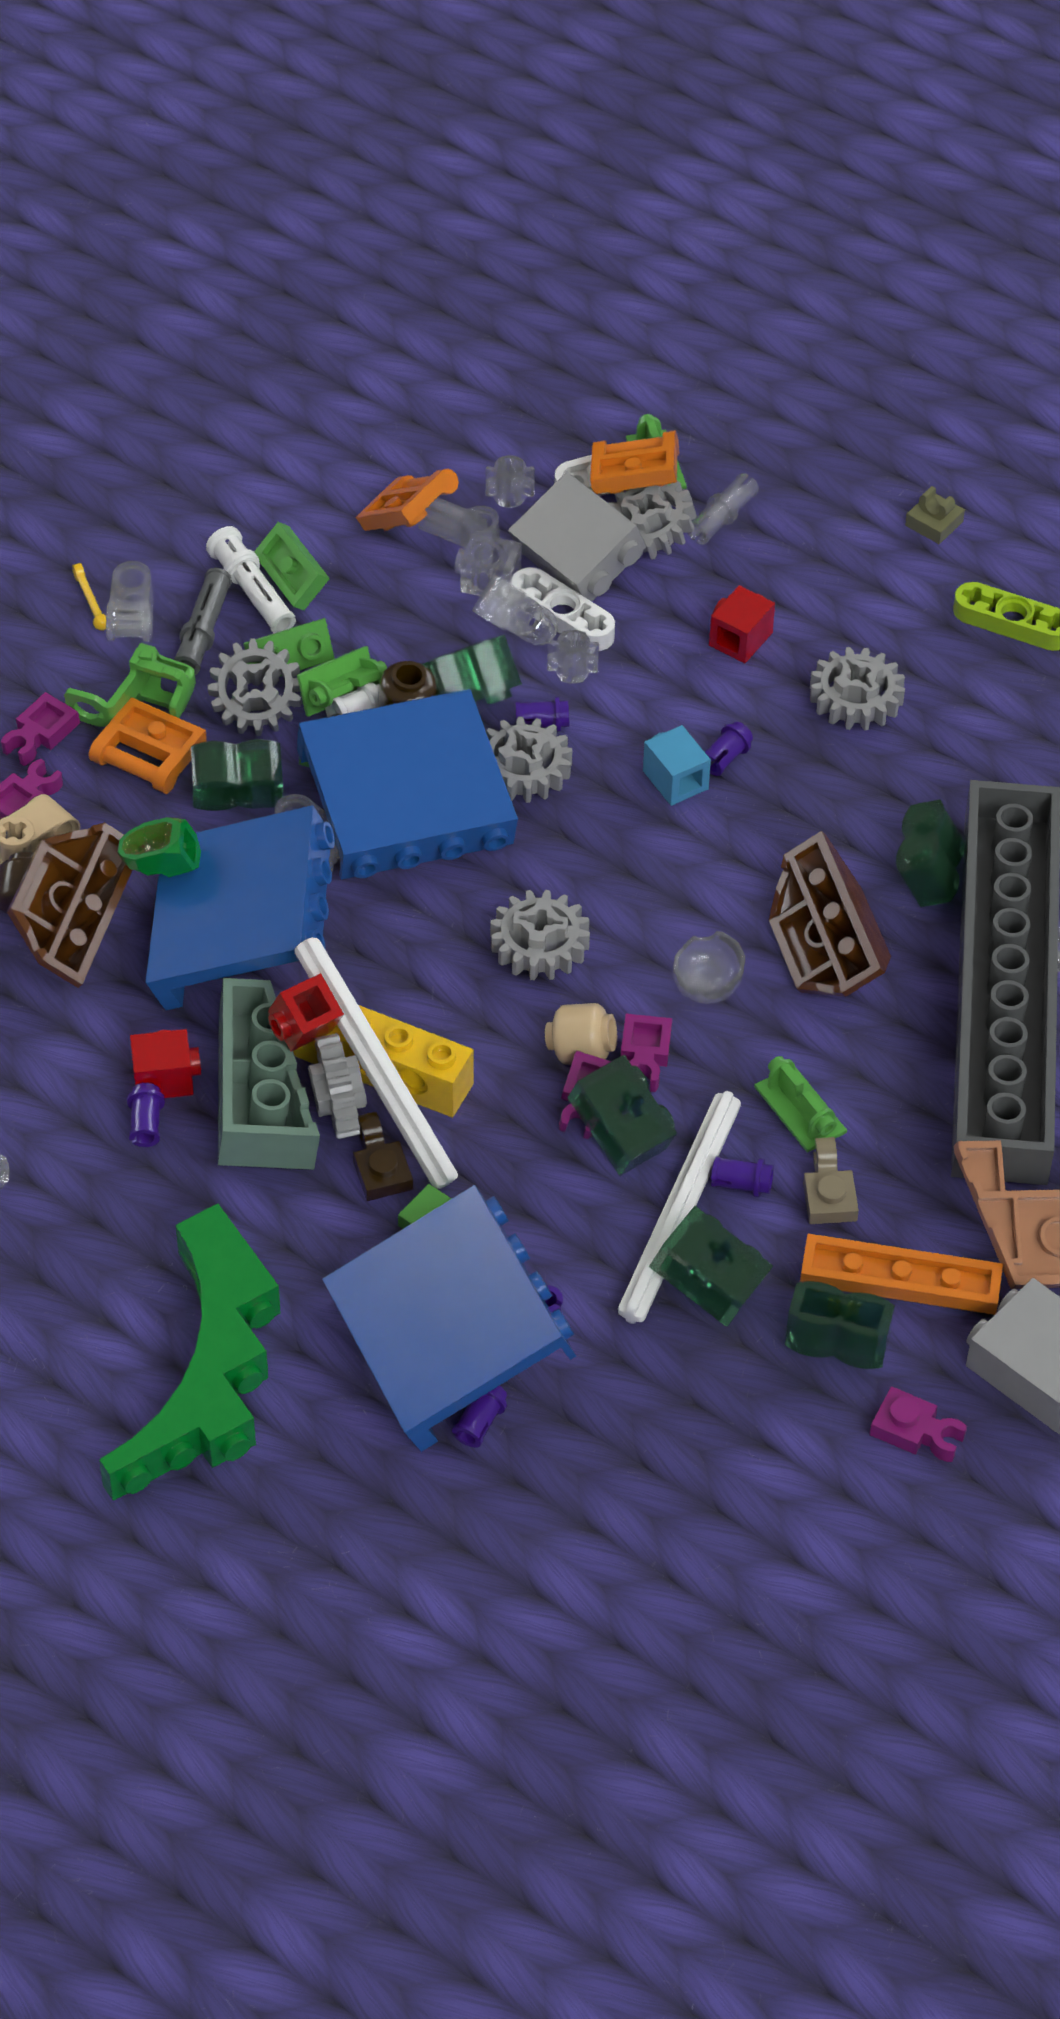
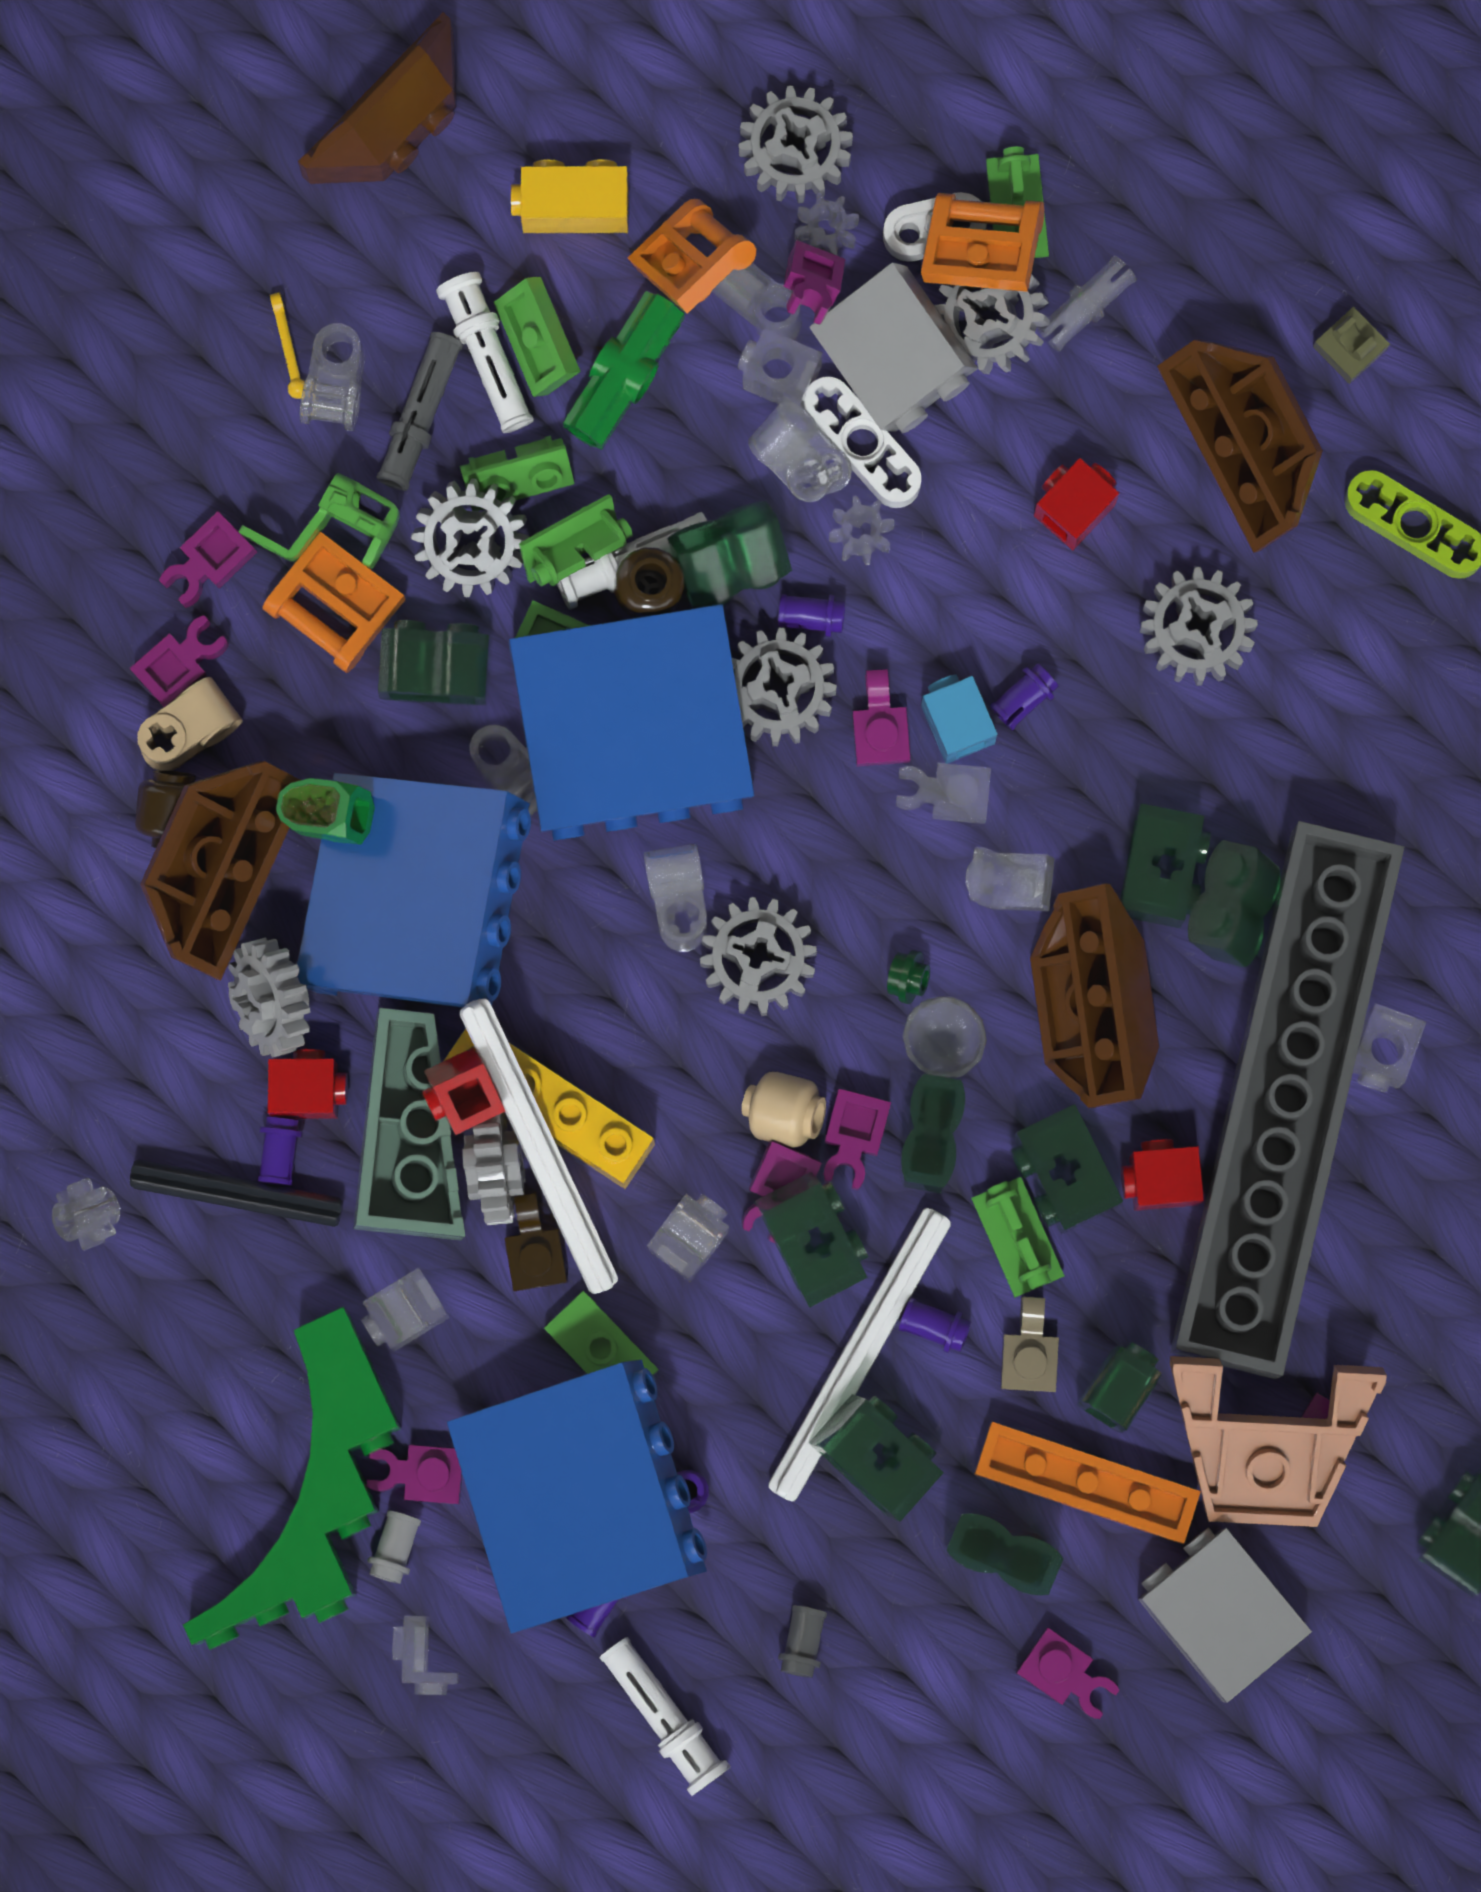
camera: 10 degrees right, 30 degrees up
(111, 1150) = (236, 1192): none -> black axle
(125, 991) = (269, 997): none -> light grey gear
(151, 446) = (391, 116): none -> reddish brown wedge
(273, 1212) = (403, 1311): none -> clear brick
(285, 1404) = (394, 1547): none -> light grey pin
(307, 483) = (572, 197): none -> yellow brick
(309, 1339) = (428, 1474): none -> magenta plate
(326, 1488) = (412, 1647): none -> clear bracket
(364, 580) = (624, 370): none -> green piece
(464, 904) = (677, 888): none -> clear piece
(475, 435) = (777, 157): none -> light grey gear
(505, 501) = (814, 279): none -> magenta plate
(515, 1133) = (690, 1235): none -> clear brick
(571, 1510) = (679, 1738): none -> white pin
(612, 785) = (880, 731): none -> magenta plate
(669, 935) = (908, 976): none -> dark green plate
(671, 1434) = (803, 1642): none -> dark grey pin
(680, 817) = (956, 792): none -> clear plate
(712, 1031) = (933, 1120): none -> clear green brick
(741, 864) = (1010, 880): none -> clear bracket
(833, 1051) = (1092, 1186): none -> clear green brick
(865, 837) = (1170, 834): none -> clear green brick
(867, 551) = (1247, 433): none -> reddish brown wedge
(914, 1186) = (1121, 1386): none -> clear green brick
(917, 1047) = (1163, 1176): none -> red brick

